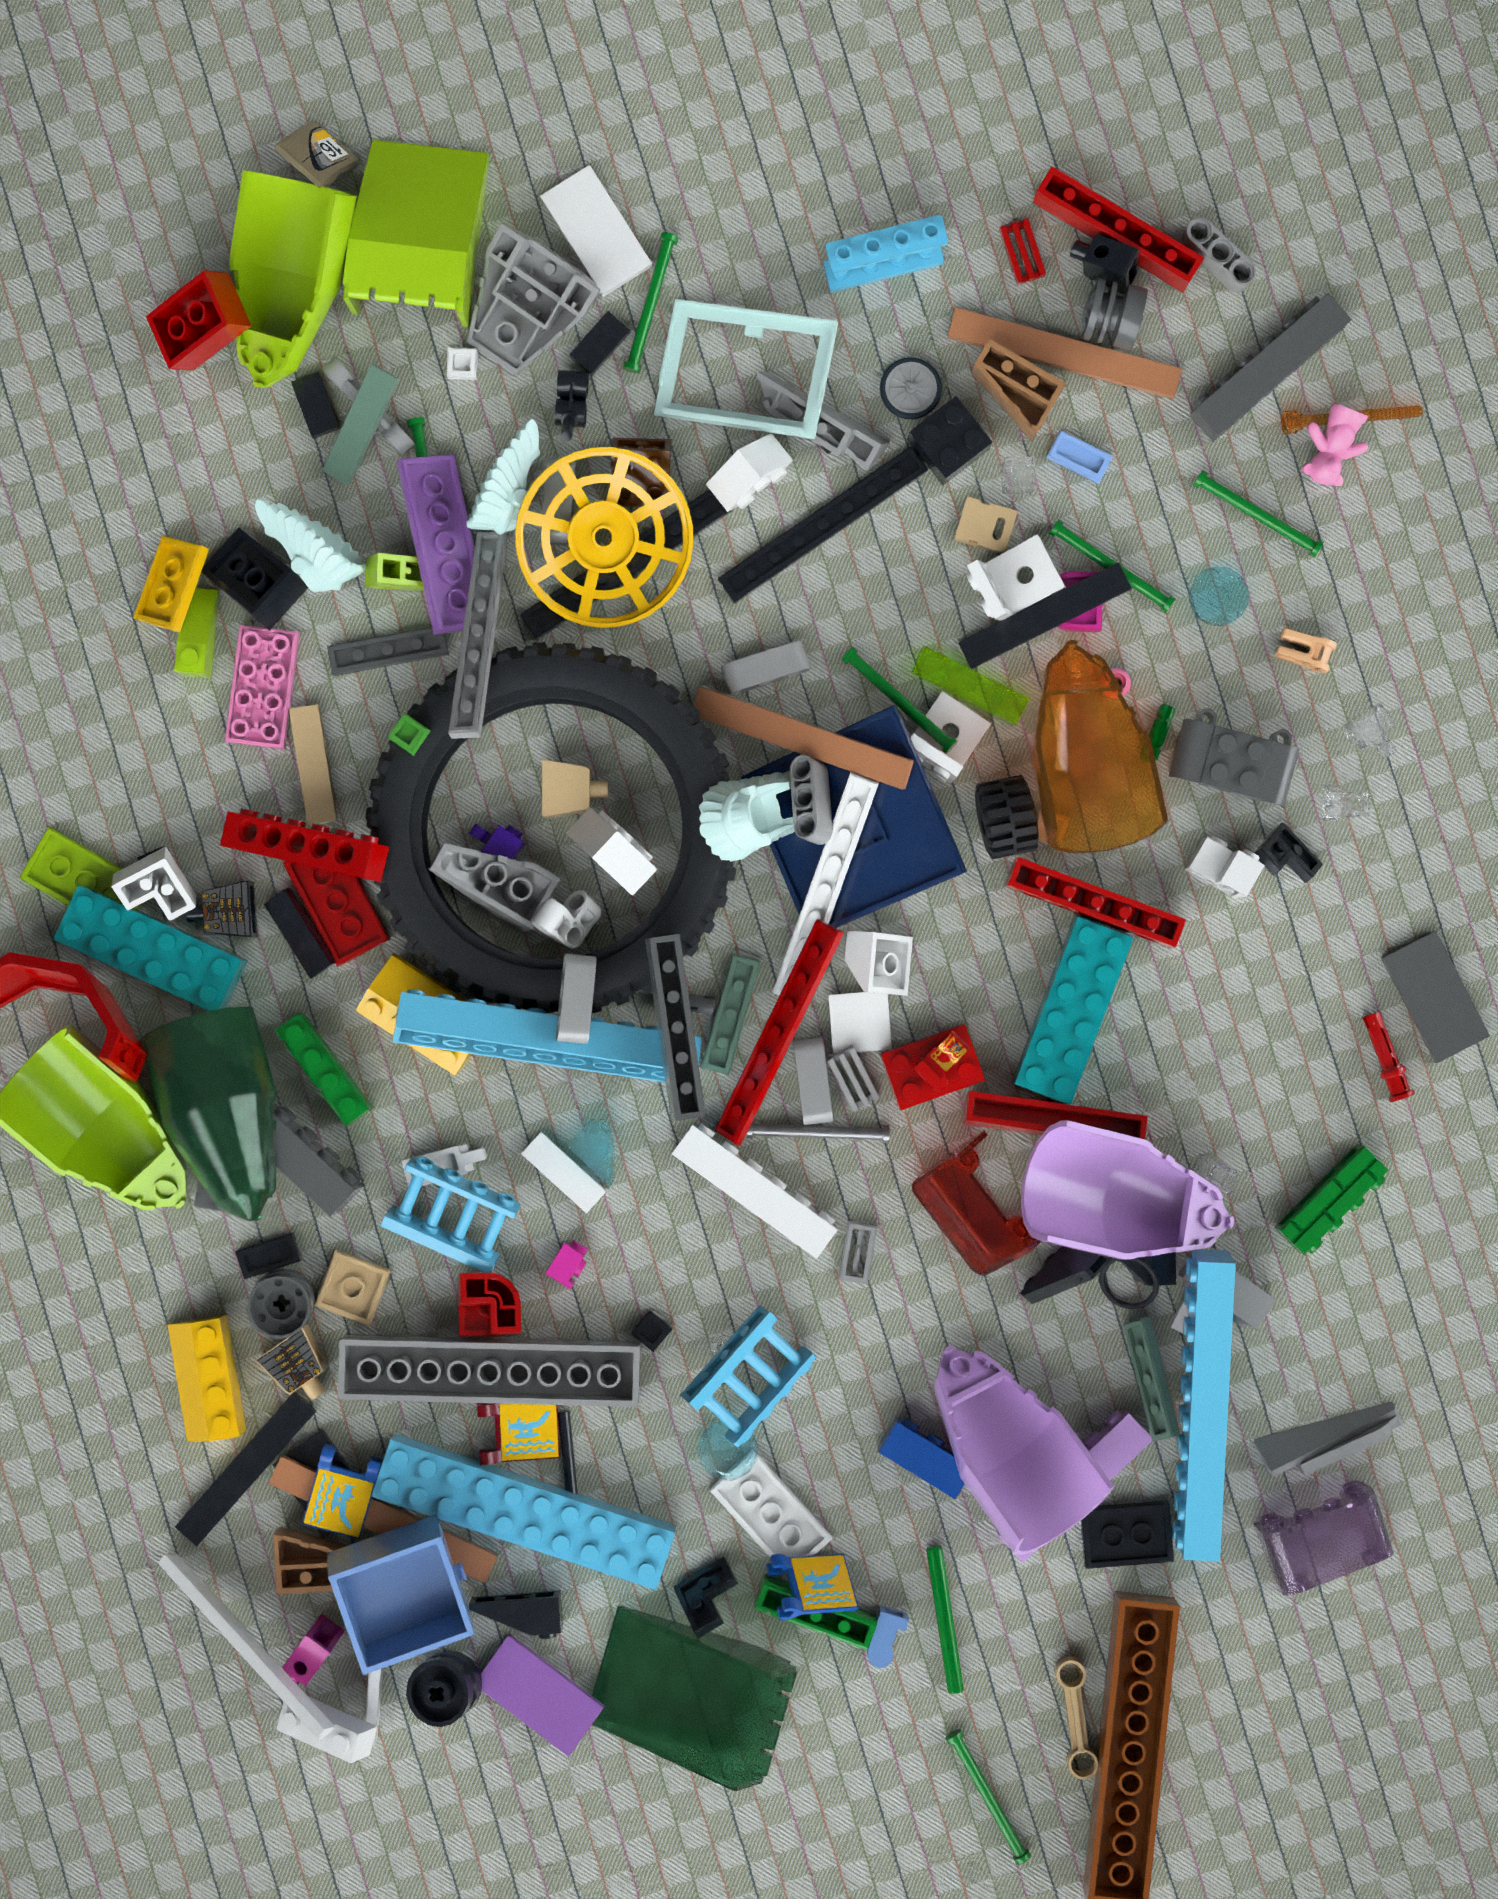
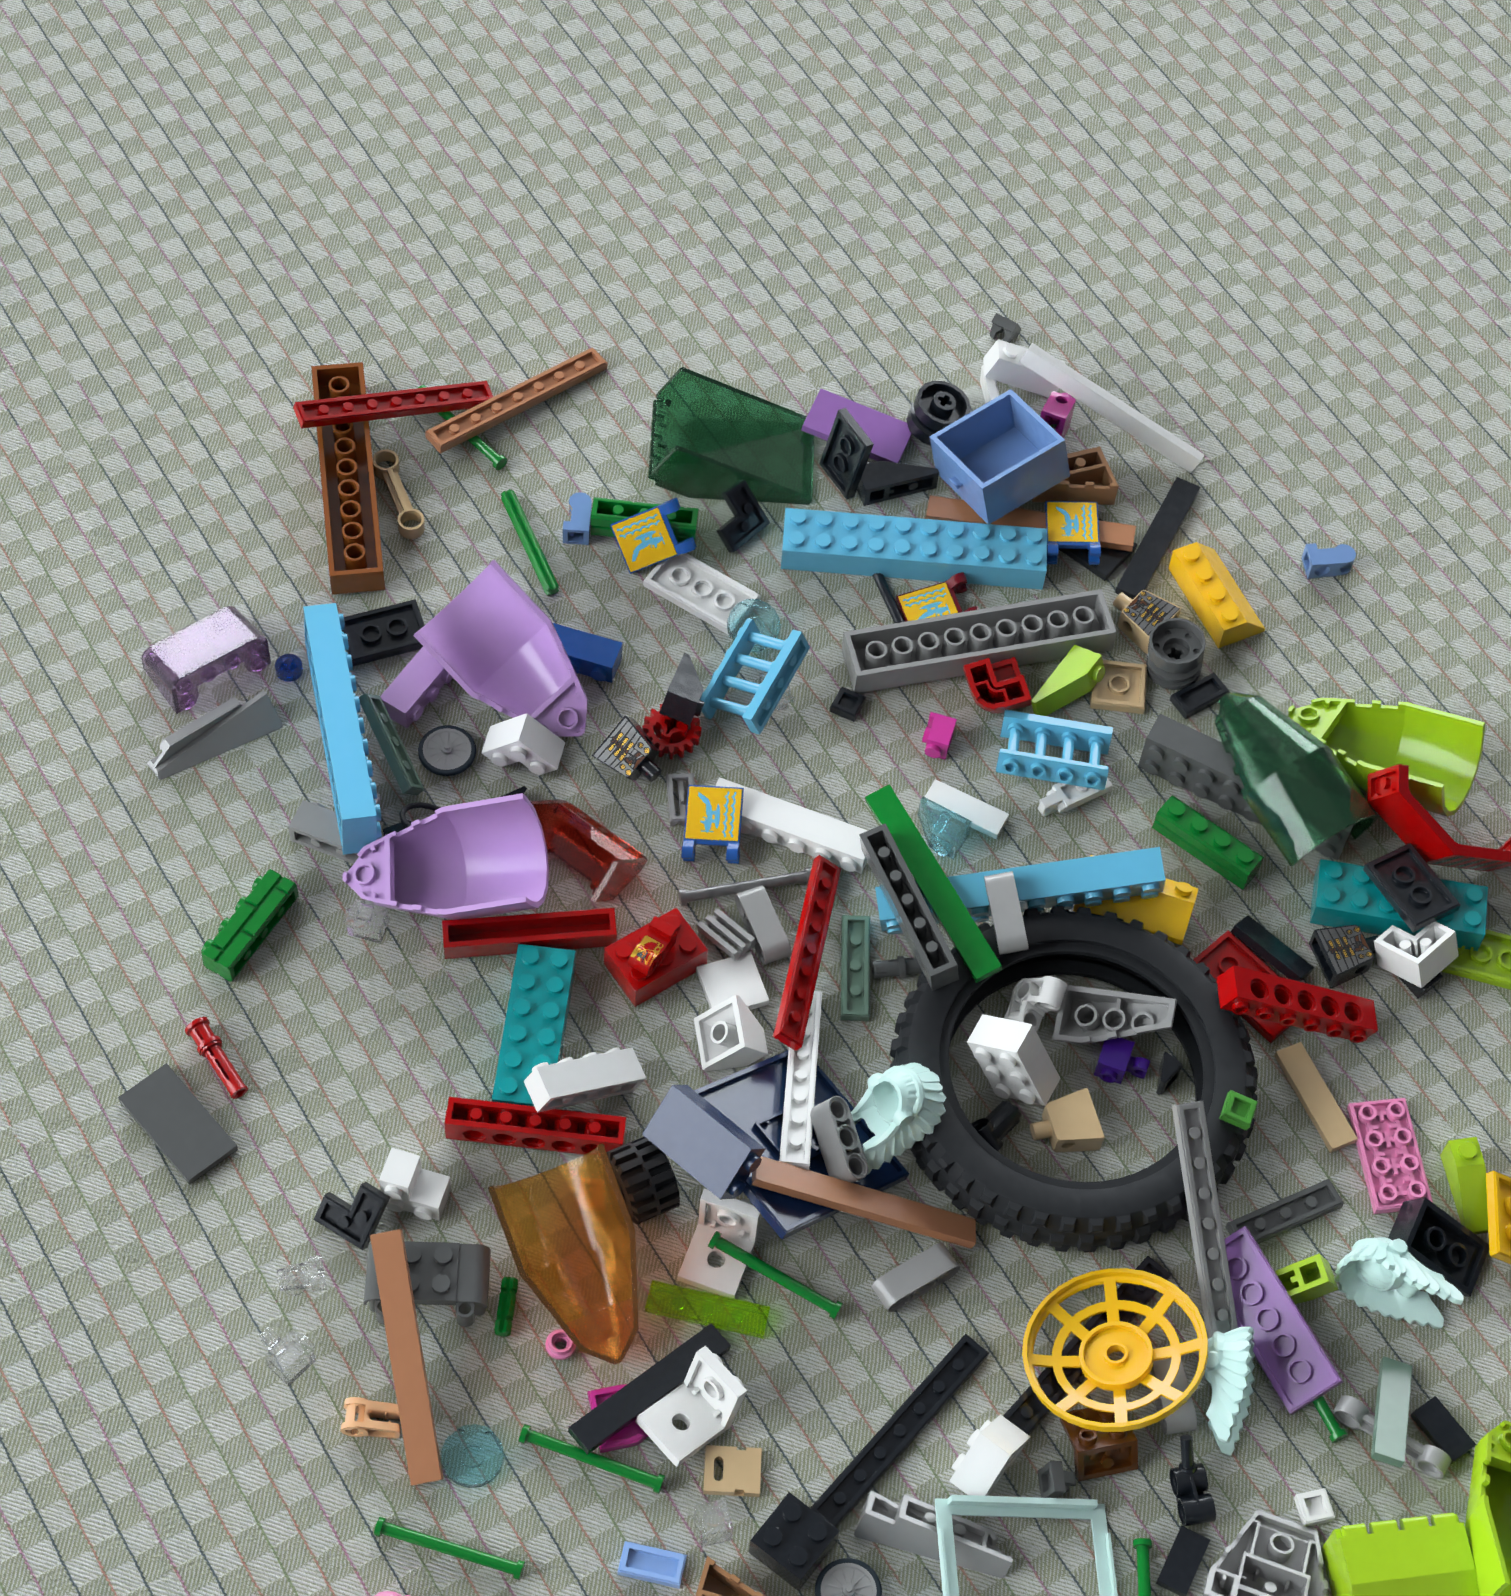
camera: 160 degrees right, 30 degrees down
(66, 1392) = (1327, 561): none -> medium blue leg
(135, 951) = (1411, 887): none -> black tile
(324, 1805) = (1002, 324): none -> dark grey tile
(404, 1299) = (1069, 681): none -> lime slope
(454, 820) = (1168, 1072): none -> black slope
(569, 1646) = (846, 453): none -> black tile
(640, 1056) = (934, 885): none -> green tile
(653, 796) = (998, 1123): none -> black piece
(695, 439) = (1055, 1480): none -> dark grey tile
(829, 1368) = (684, 693): none -> slope
(835, 1209) = (713, 820): none -> flag
(860, 1343) = (673, 734): none -> red gear
(902, 1313) = (629, 751): none -> torso
(917, 1819) = (516, 400): none -> nougat tile
(950, 812) = (704, 1142): none -> brick
(1012, 1346) = (523, 741): none -> white brick
(1039, 935) = (584, 1079): none -> white brick
(1063, 1832) = (391, 404): none -> red tile
(1090, 1366) = (447, 750): none -> light grey wheel
(1237, 1510) = (288, 667): none -> clear blue tile
(1270, 688) = (406, 1357): none -> nougat tile

